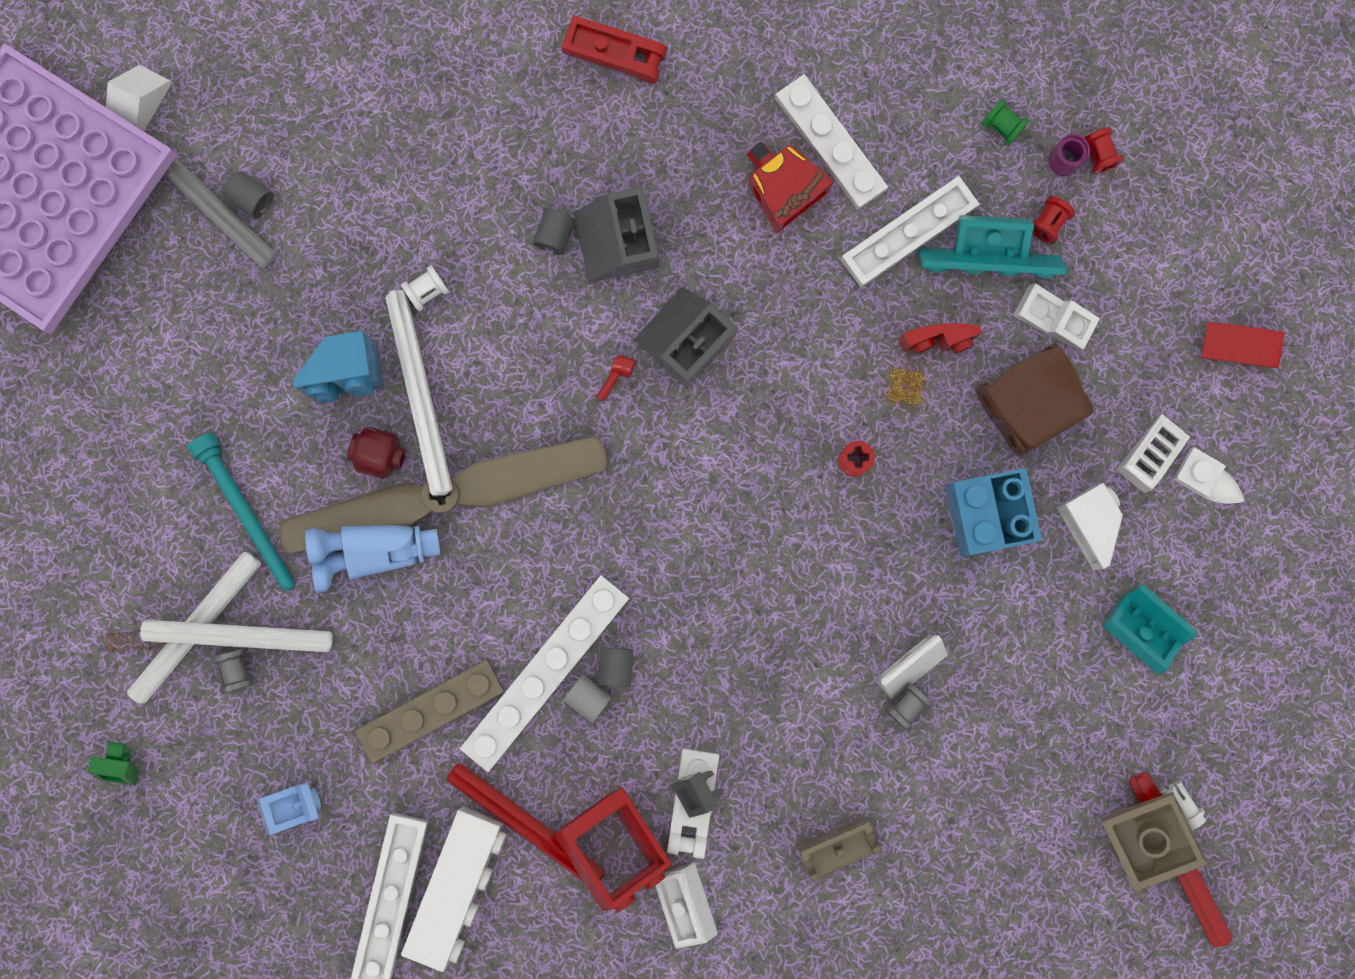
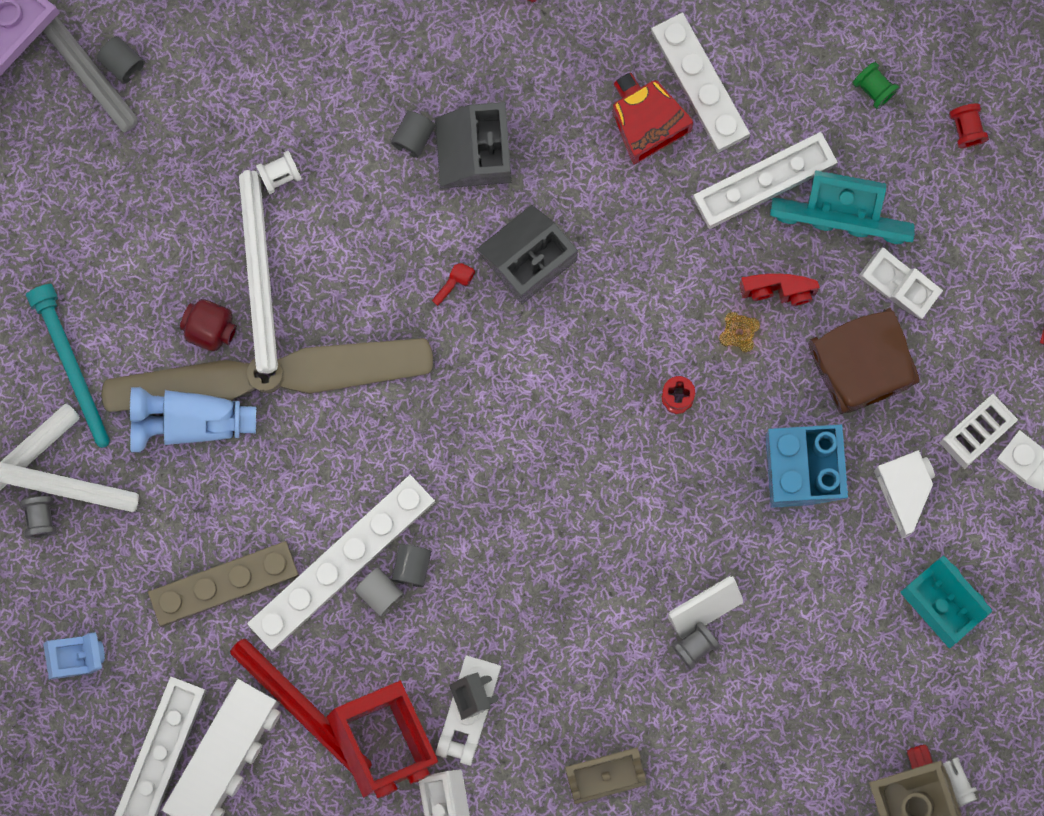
camera: 20 degrees right, 5 degrees down
(341, 366) = (187, 237): dark azure slope -> none
(1052, 219) = (918, 180): red bush -> none
(1077, 146) = (940, 115): magenta beam -> none

